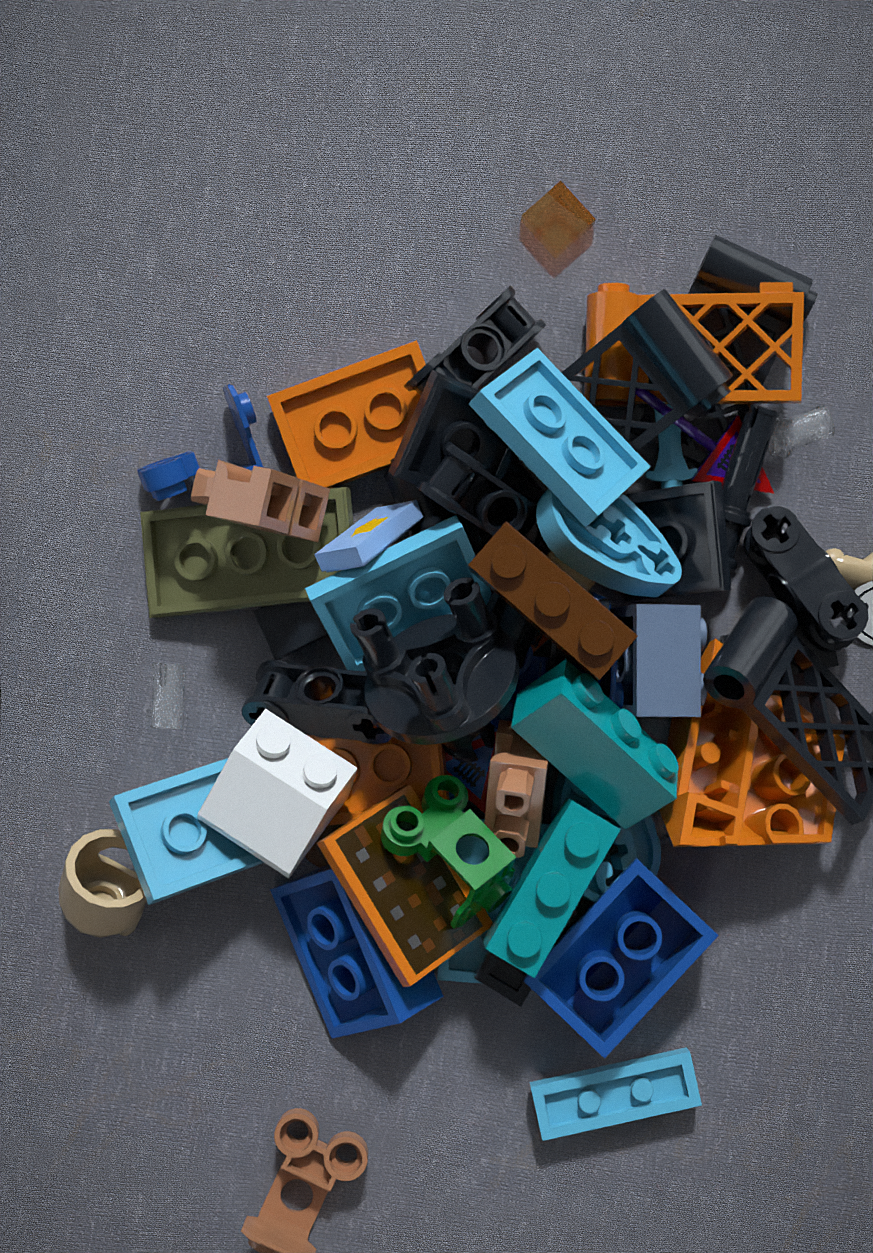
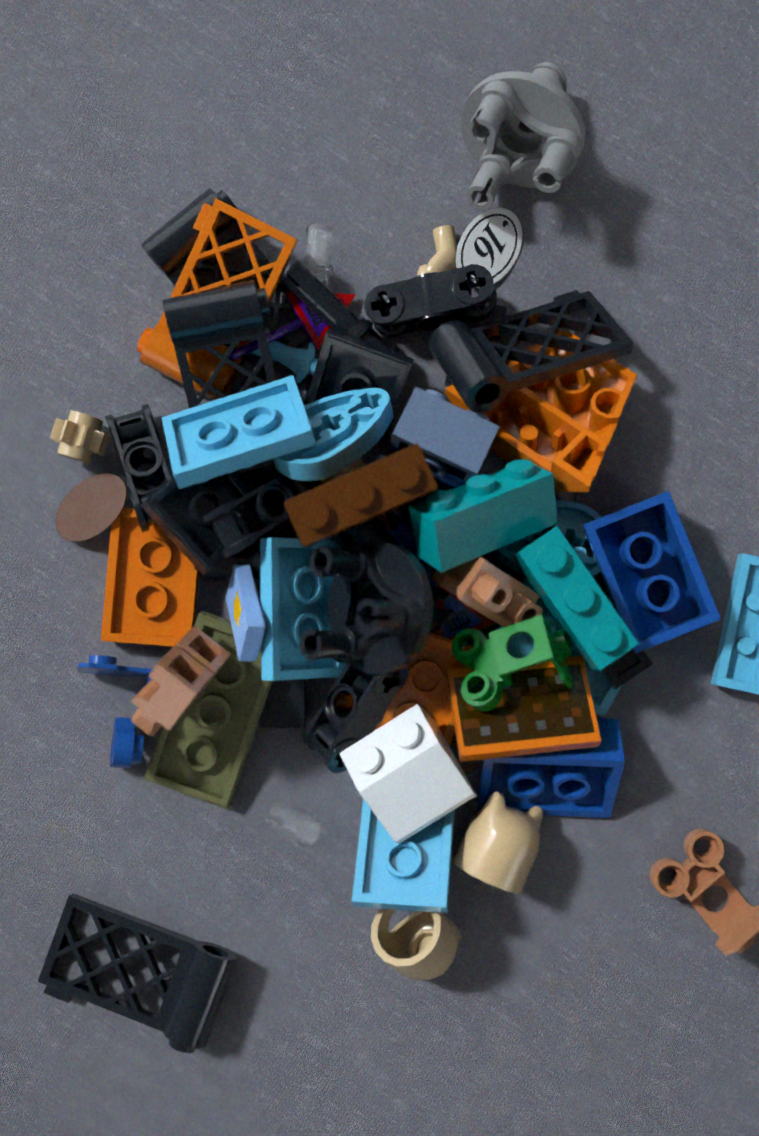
camera: 70 degrees left, 0 degrees up
(248, 930) = (500, 844): none -> tan piece
(405, 317) = (91, 507): none -> reddish brown sticker
(475, 269) = (80, 437): none -> tan gear
(558, 219) = (72, 357): clear orange tile -> none

